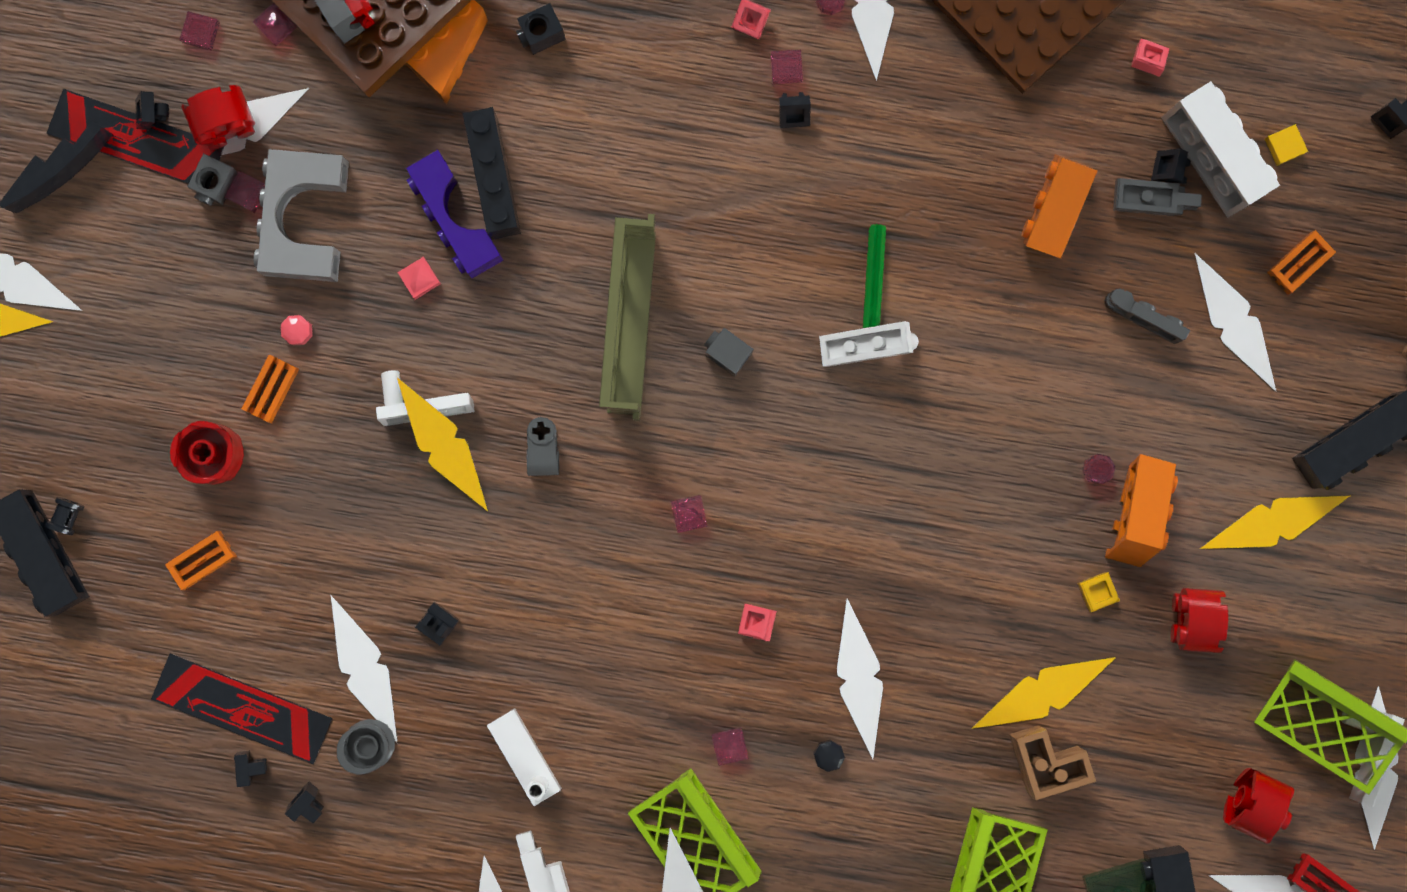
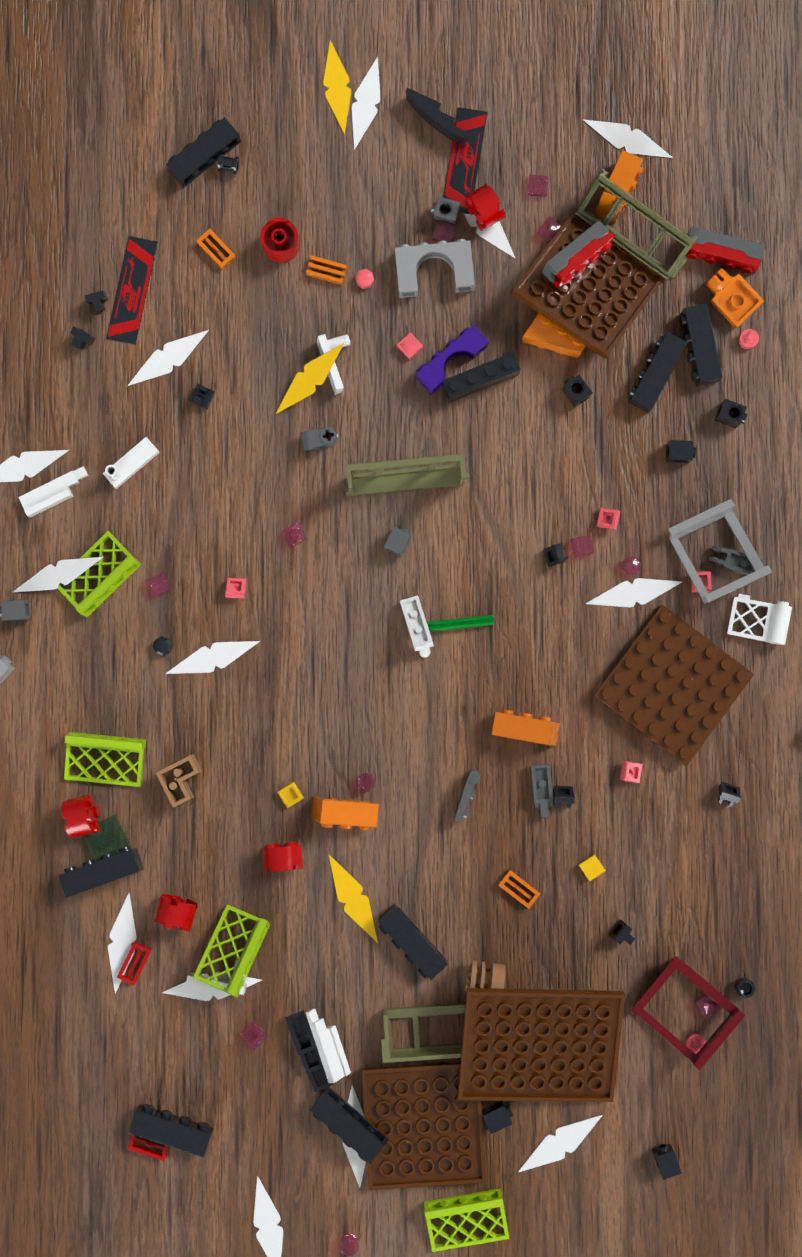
camera: 90 degrees right, 0 degrees up
(148, 112) = (481, 164): black tile -> none
(365, 746) = (121, 367): dark grey piece -> none
(1033, 697) = (227, 777): yellow sticker -> none
(1220, 149) = (578, 822): white brick -> none
(1240, 332) = (469, 858): white sticker -> none

